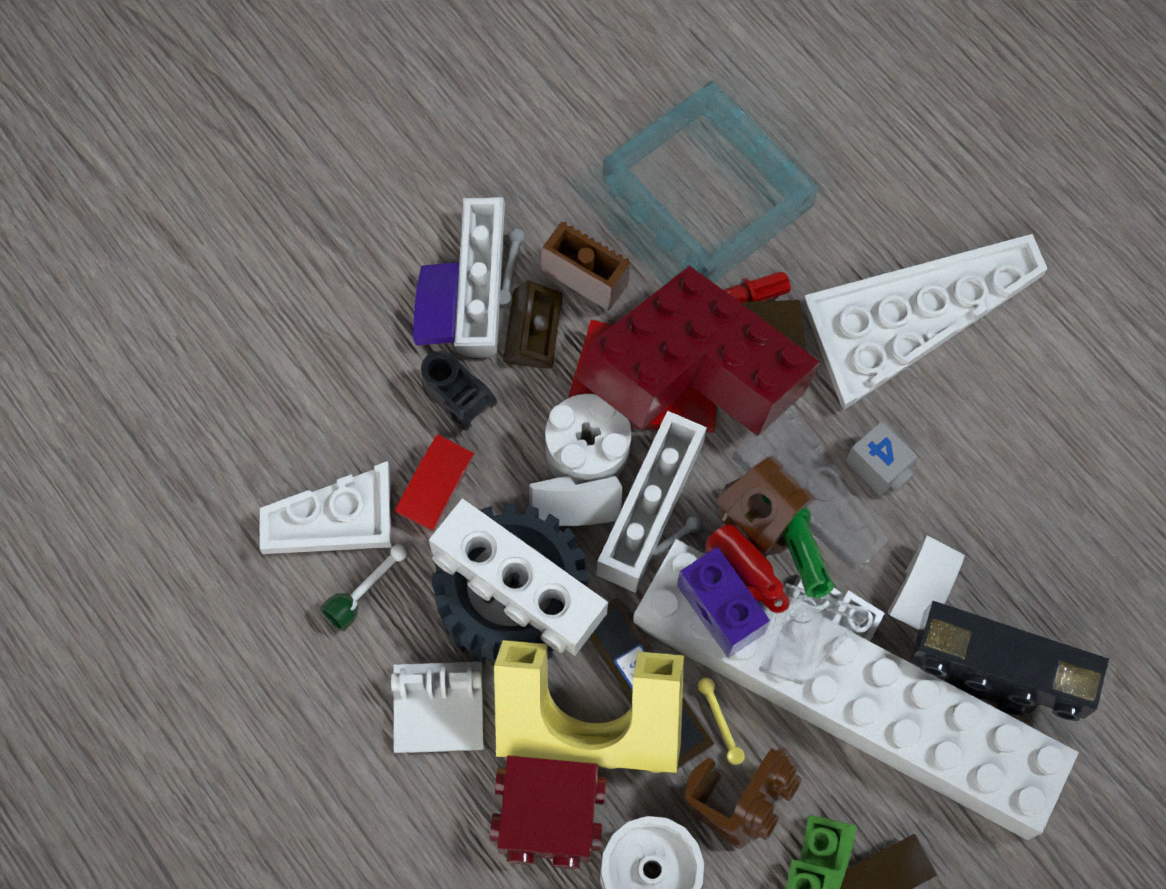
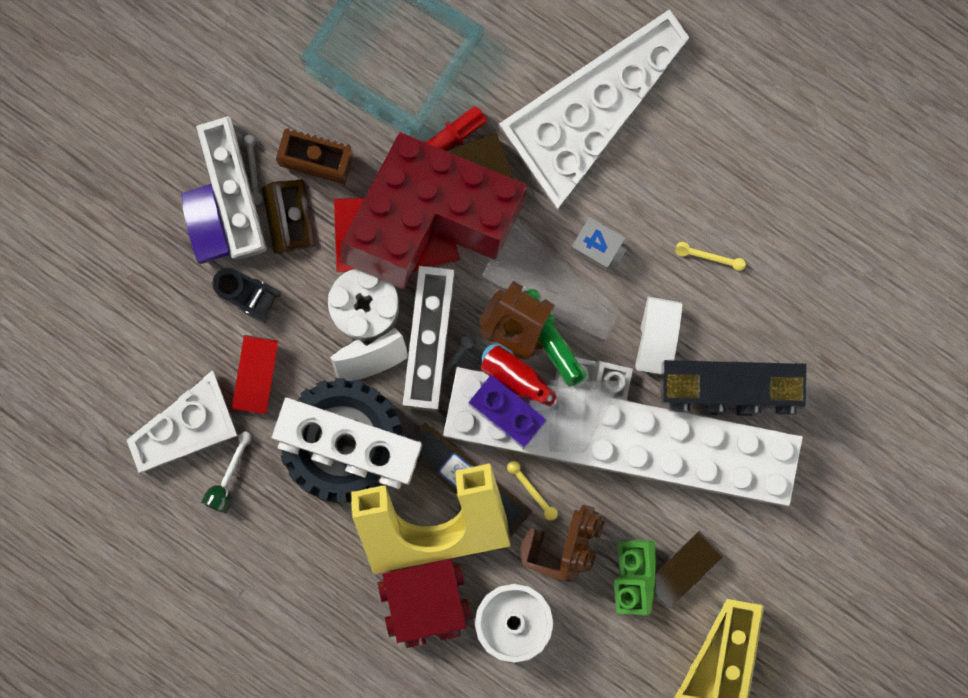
camera: 15 degrees left, 15 degrees up
(438, 707) = (316, 548): white hinge -> none
(980, 497) = (683, 249): none -> light yellow hinge

